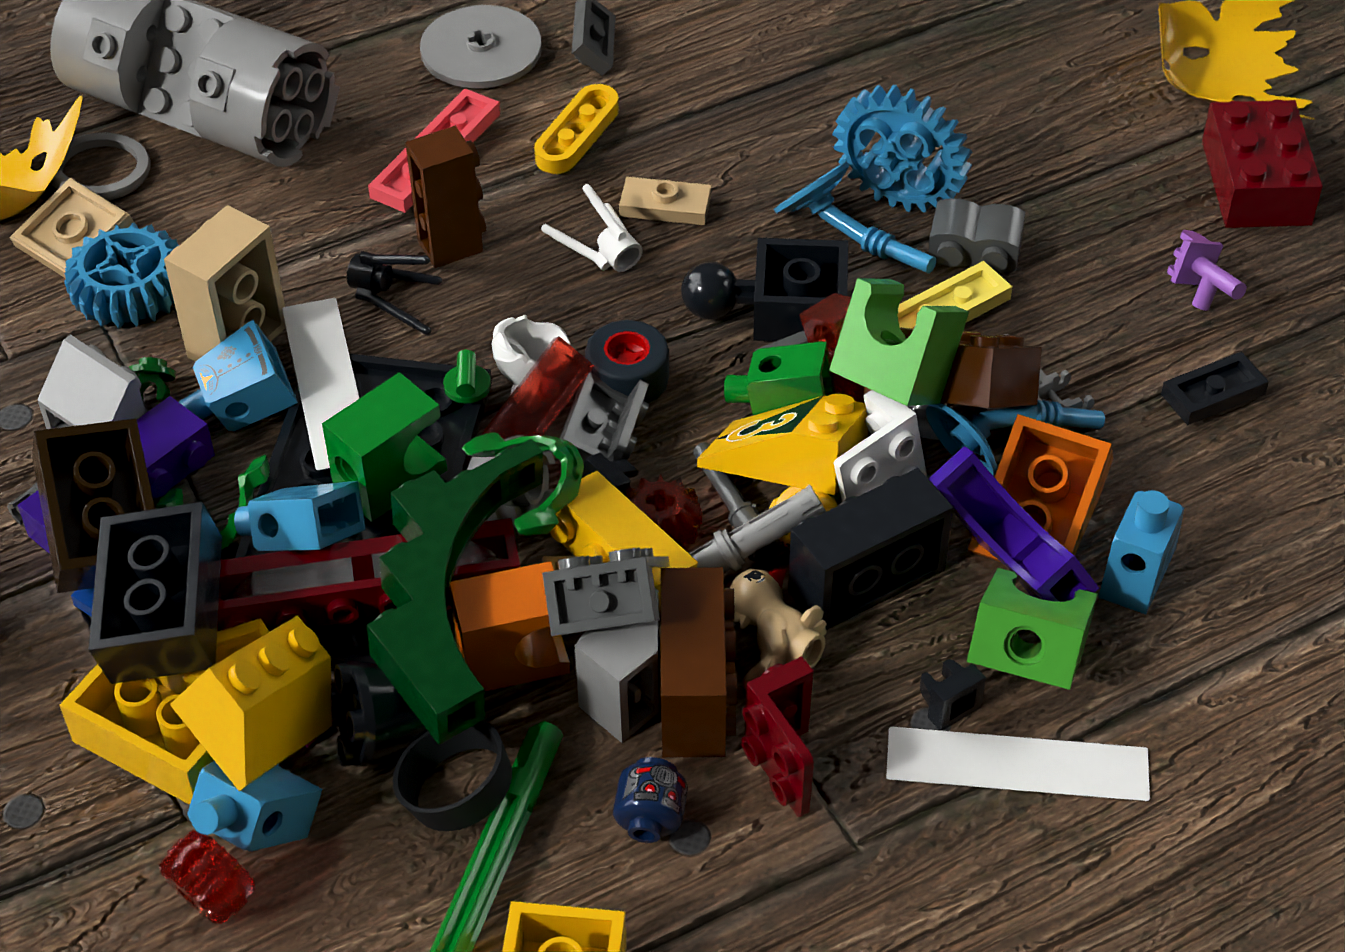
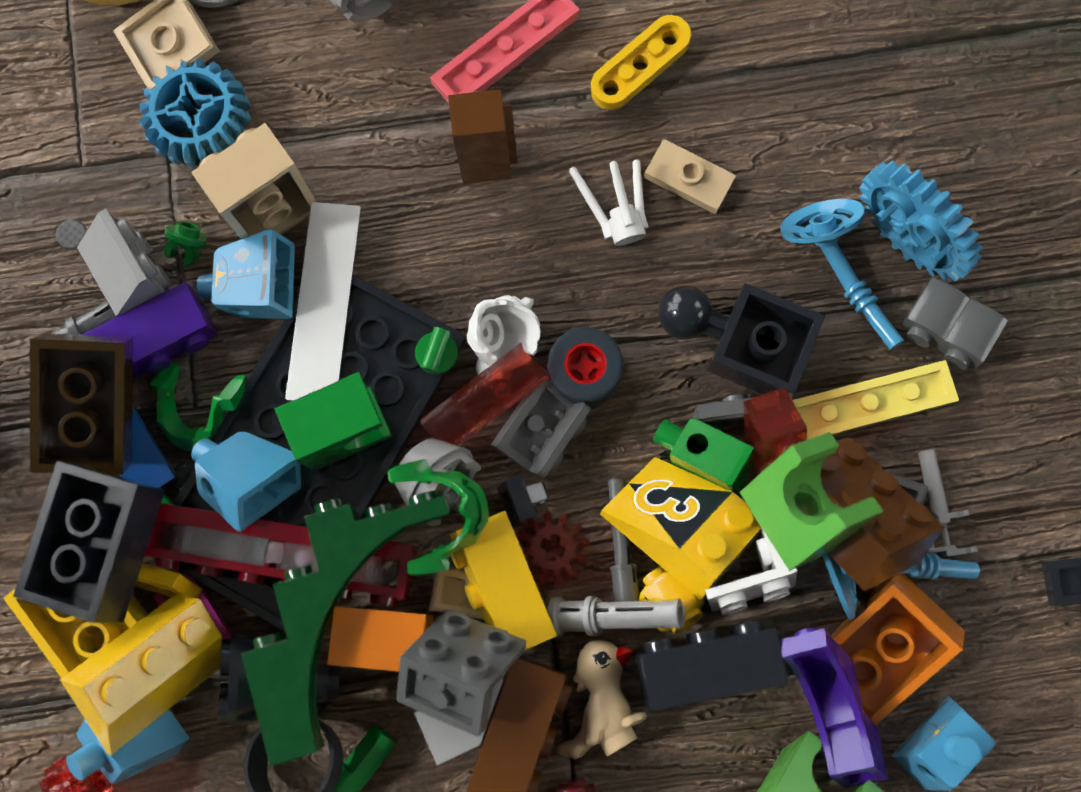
camera: 25 degrees right, 30 degrees up
(371, 275) = (405, 185): black plant -> none

